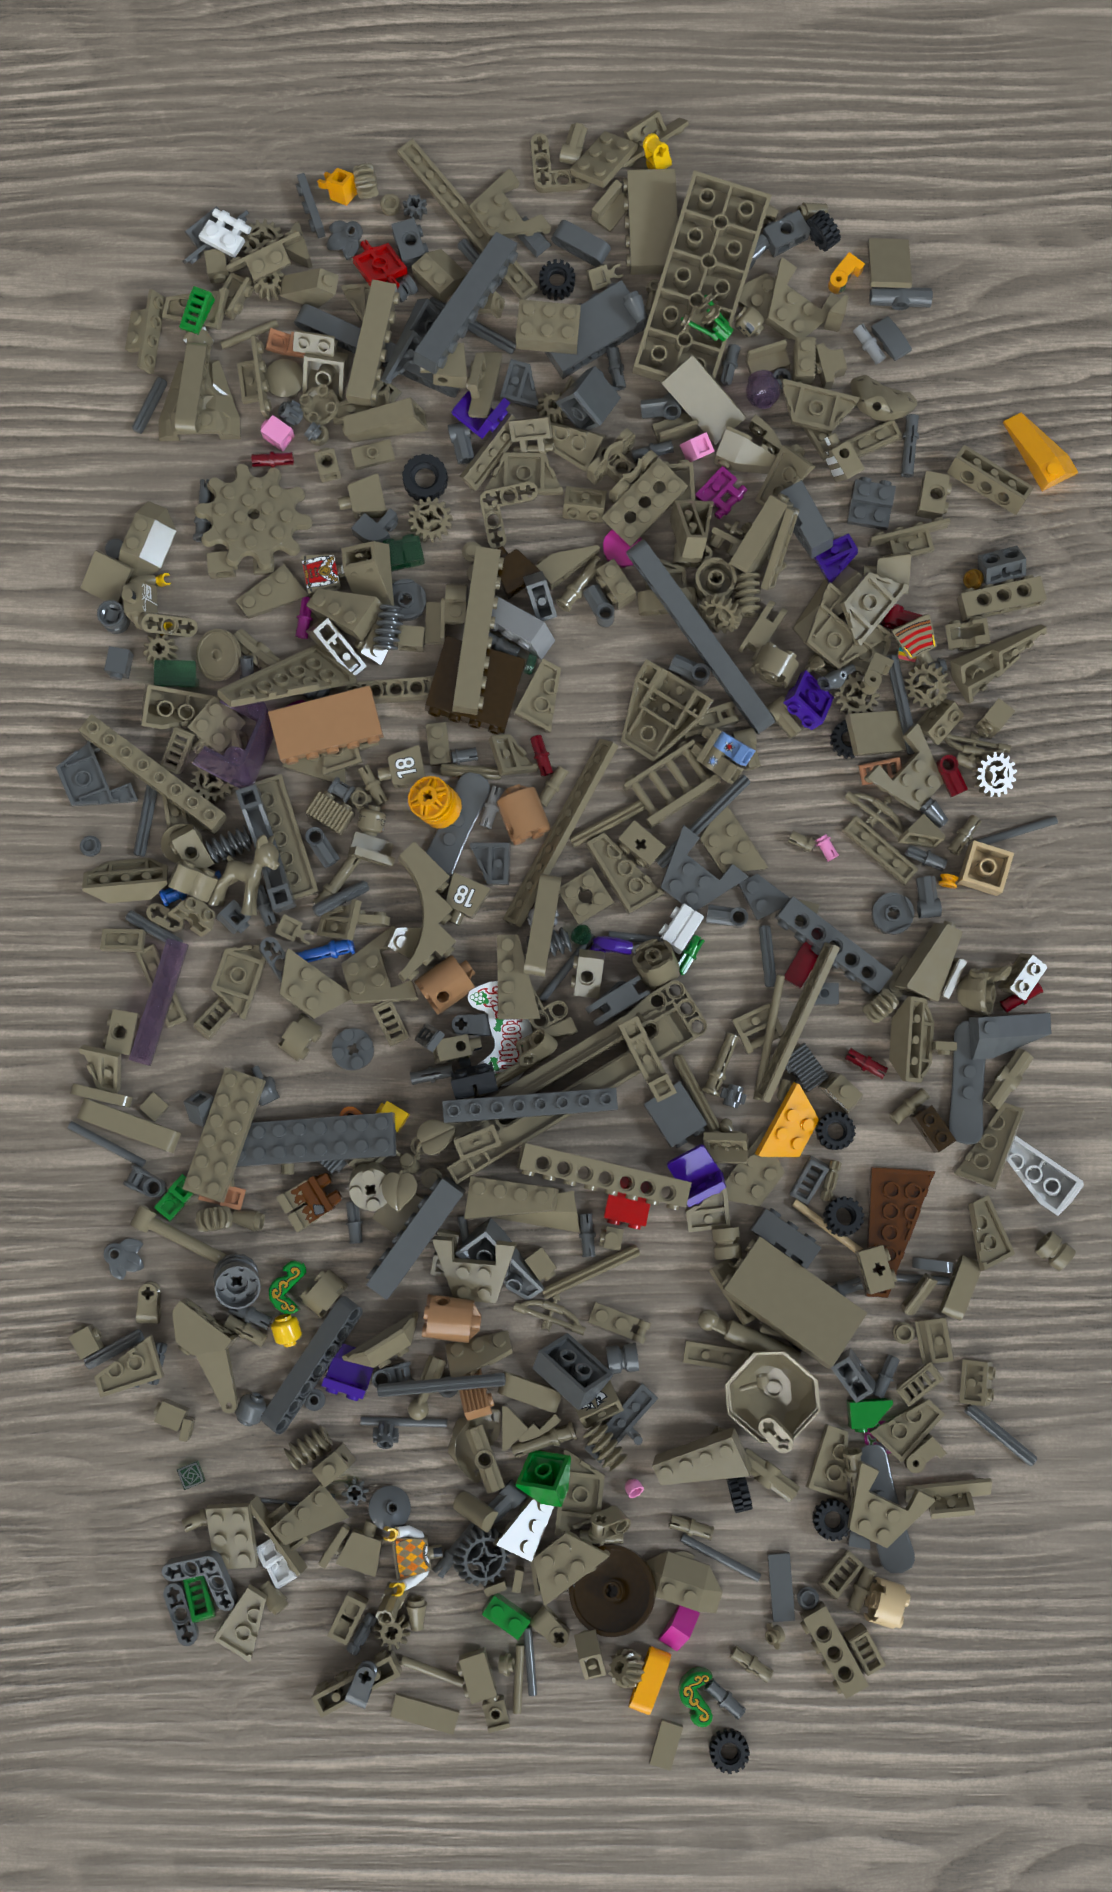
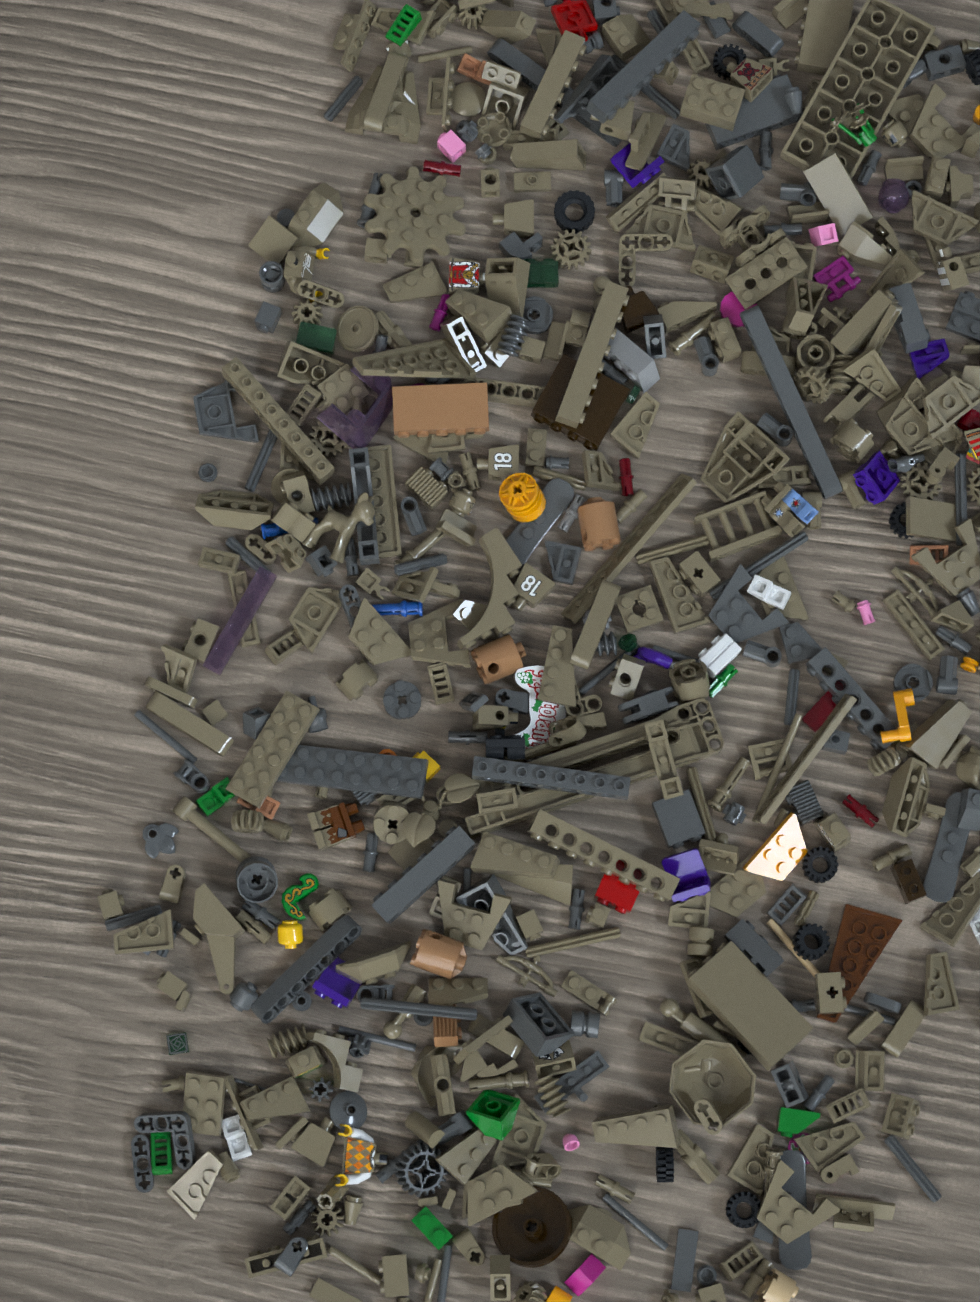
camera: 15 degrees right, 5 degrees down
(179, 1357) = (190, 937): none -> dark tan tile
(378, 1468) = (346, 1074): none -> dark tan arch
(517, 1401) = (483, 1036): none -> dark tan wing
(583, 290) = (750, 76): none -> dark tan torso
(720, 849) = (768, 592): none -> white slope
(782, 588) = (873, 374): none -> dark tan wing
(886, 934) = (902, 699): none -> light orange beam

